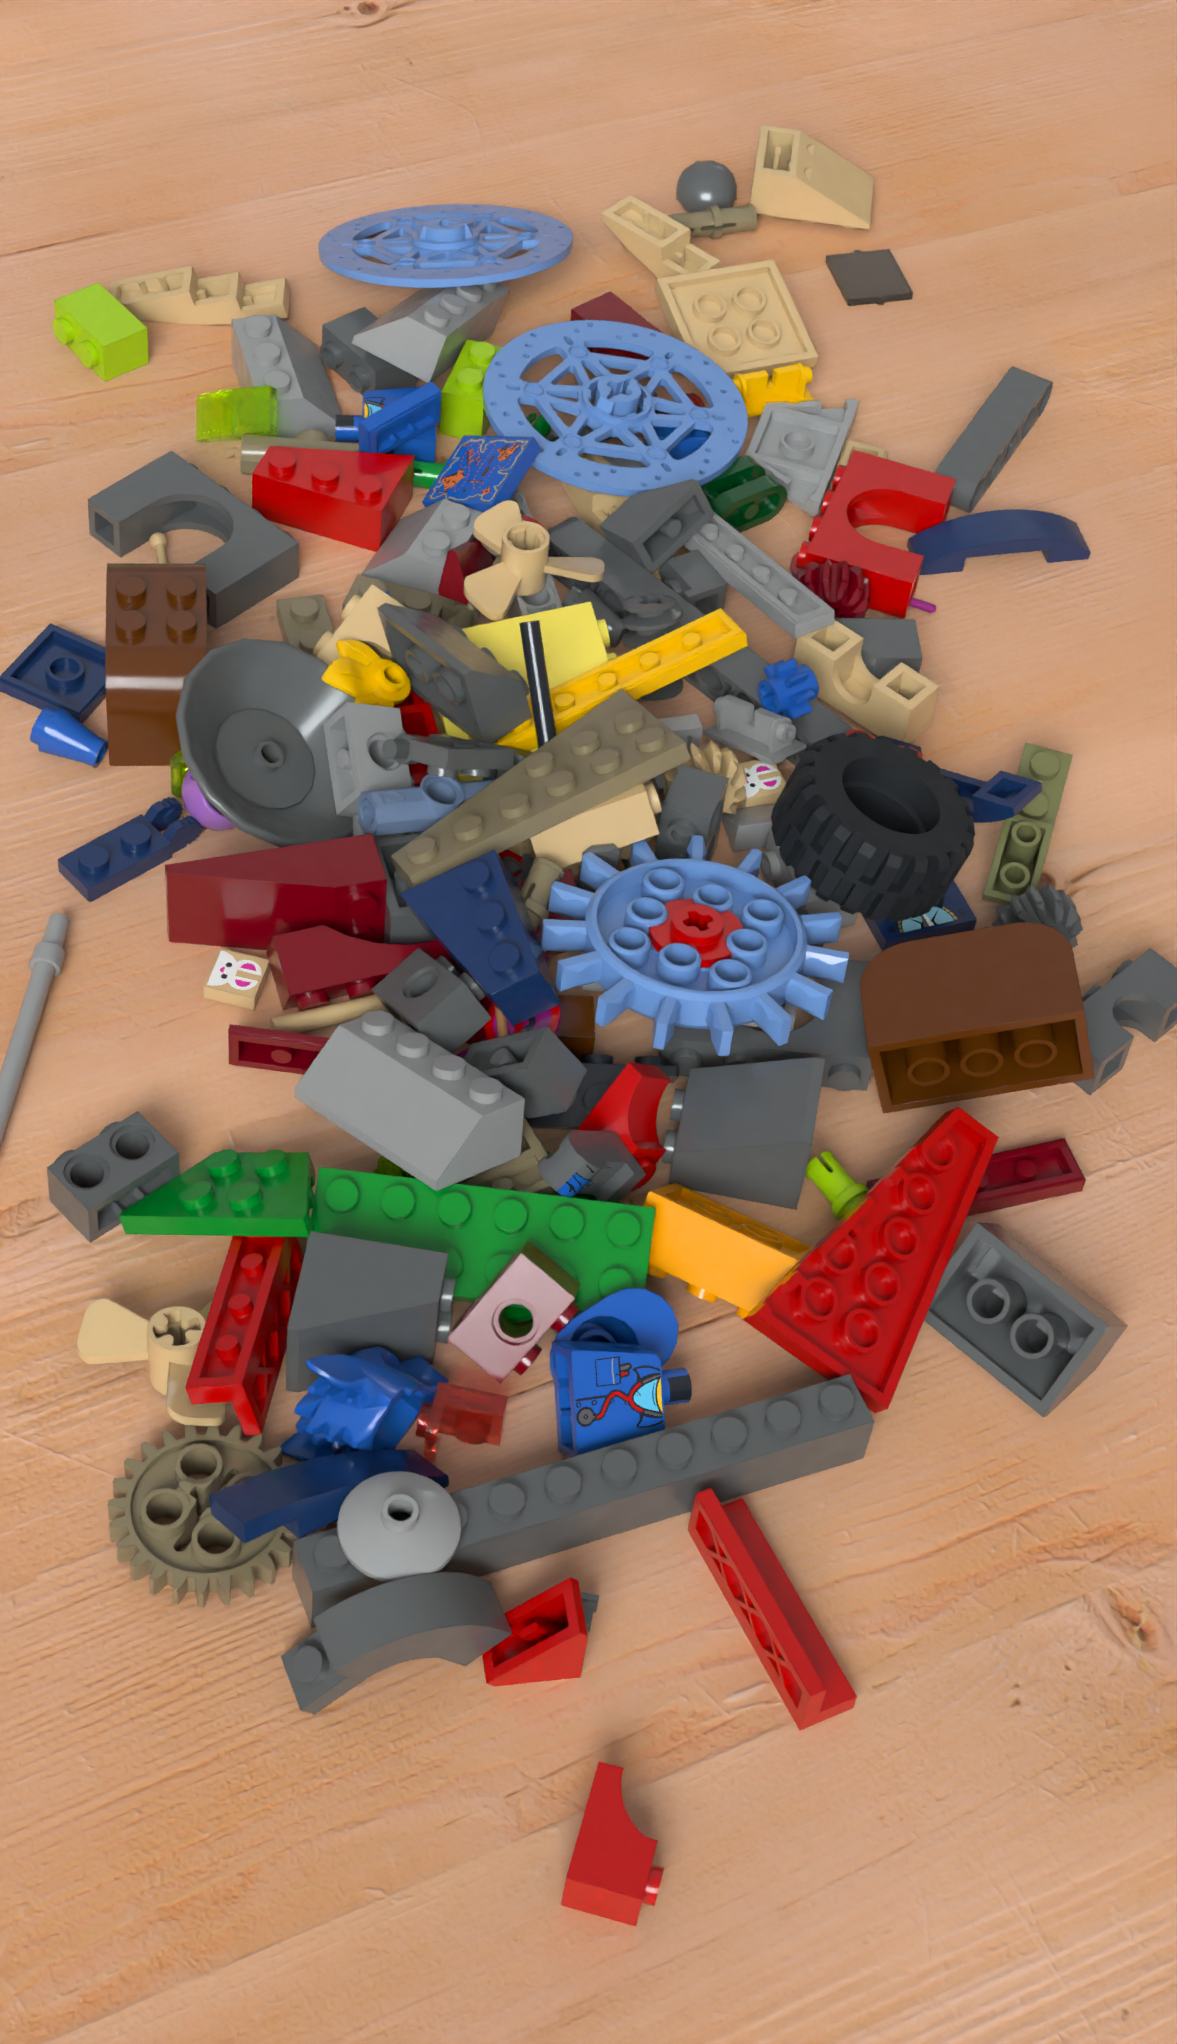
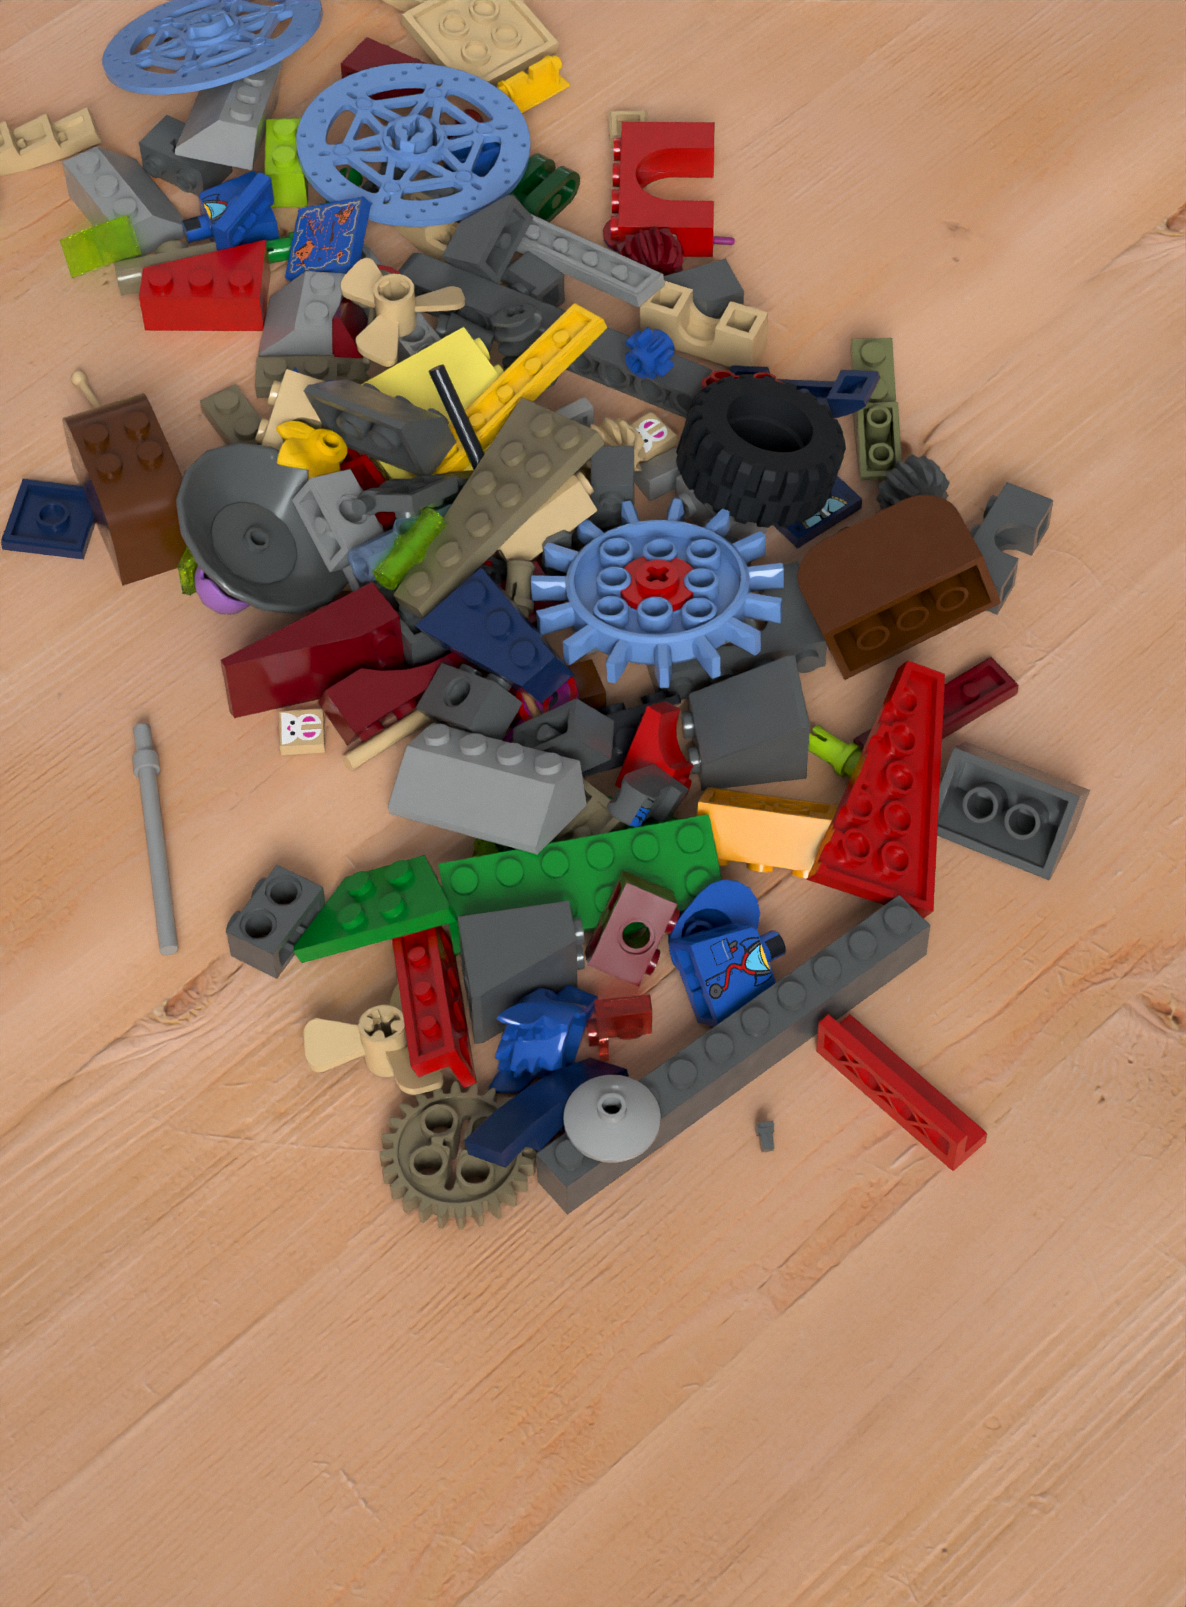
camera: 10 degrees left, 5 degrees up
(66, 737) = (82, 573): blue cone -> none
(129, 850) = (170, 653): dark blue hinge -> none
(178, 496) = (79, 334): dark grey arch -> none
(273, 1049) = (359, 780): dark red slope -> none
(394, 1623) = (638, 1187): dark grey arch -> none
(427, 809) = (409, 548): none -> clear neon green pin
(545, 1640) = (740, 1167): red slope -> none
(611, 1858) = (854, 1306): red arch -> none
(753, 731) = (643, 398): light grey hinge -> none
(802, 447) = (575, 129): light grey wing -> none
(994, 435) = (728, 70): dark grey beam -> none
(997, 533) = (761, 159): dark blue slope -> none

